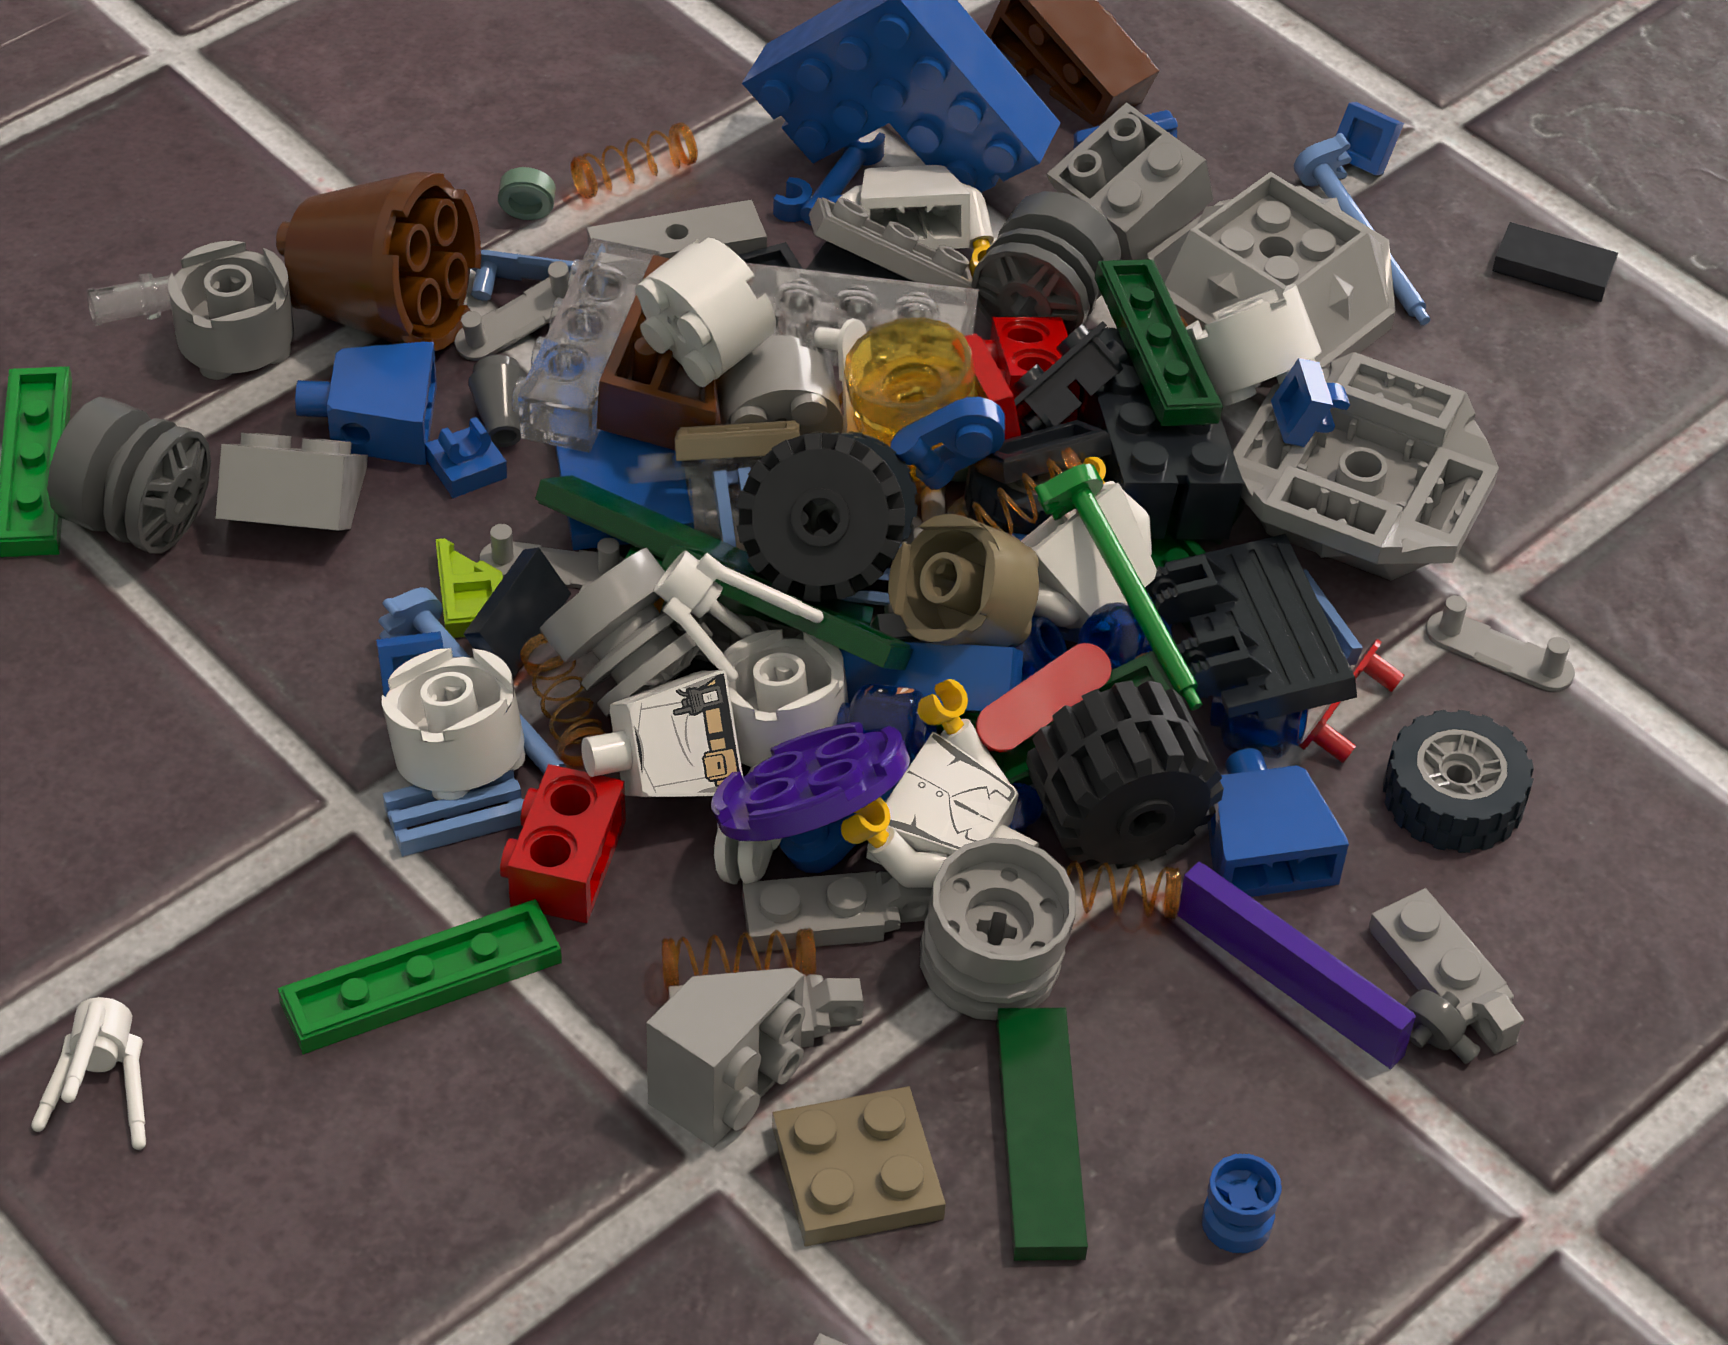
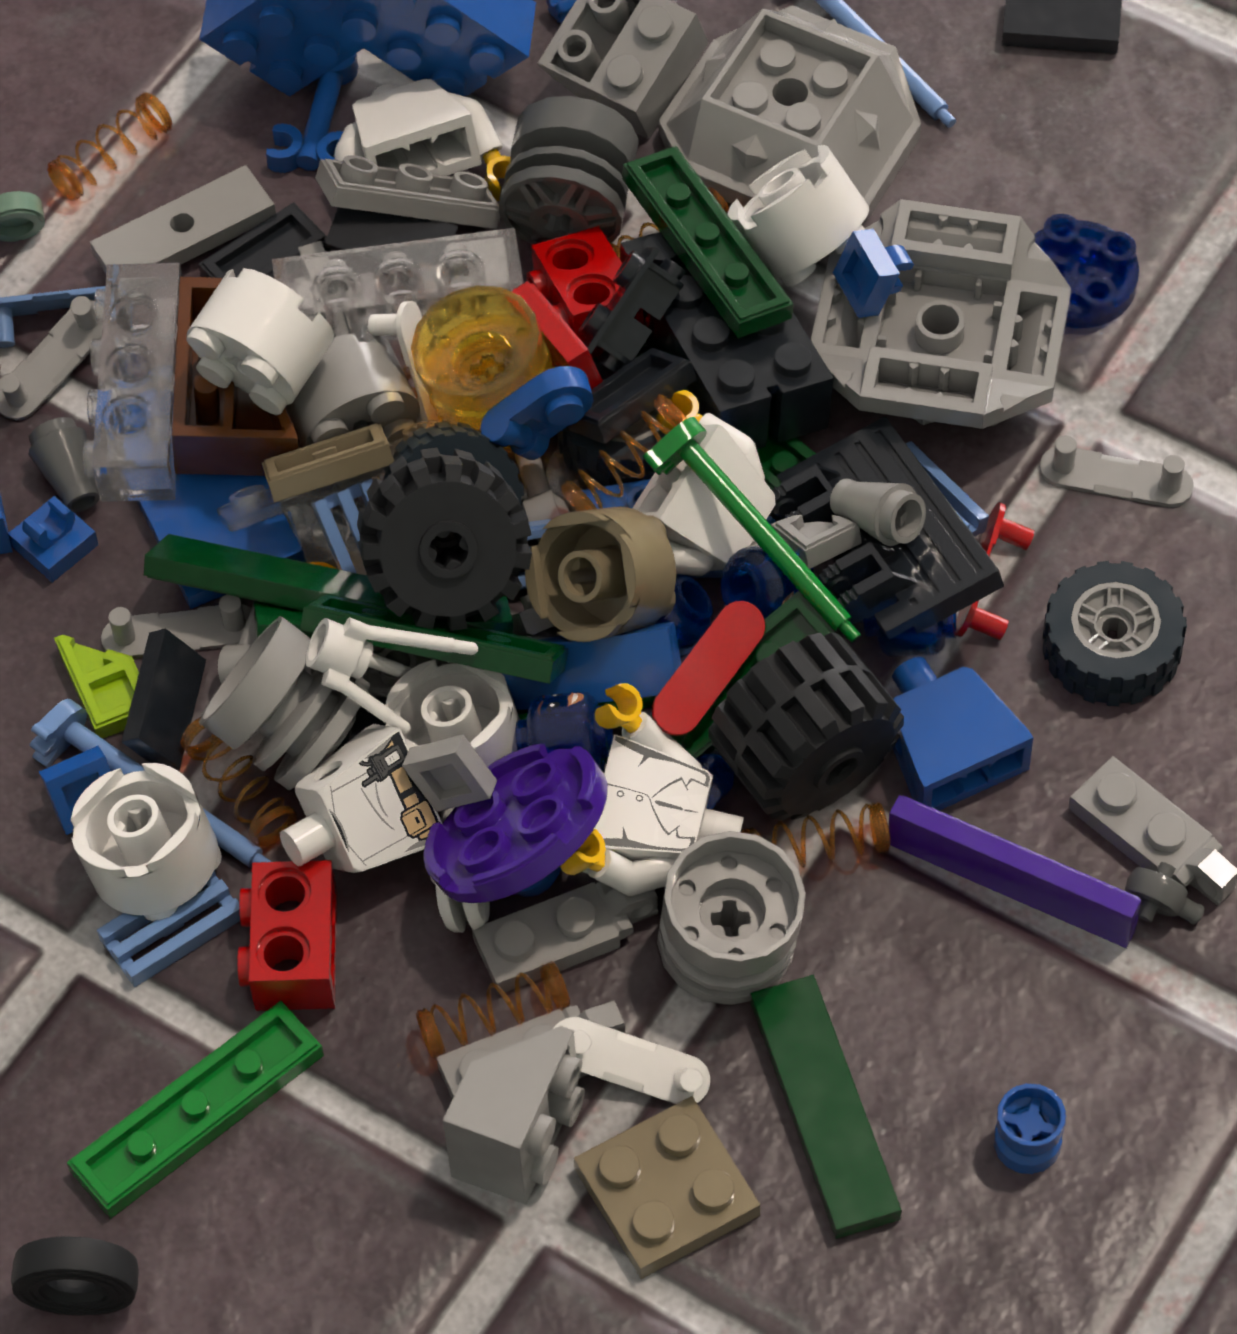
camera: 10 degrees left, 10 degrees up
(276, 1078) = (74, 1275): none -> black tyre
(761, 724) = (449, 773): none -> light grey tile
(863, 1041) = (637, 1062): none -> white piece
(1189, 617) = (818, 540): none -> light grey tile
(1256, 600) = (883, 510): none -> light grey cone
(1531, 472) = (1096, 265): none -> clear blue tile

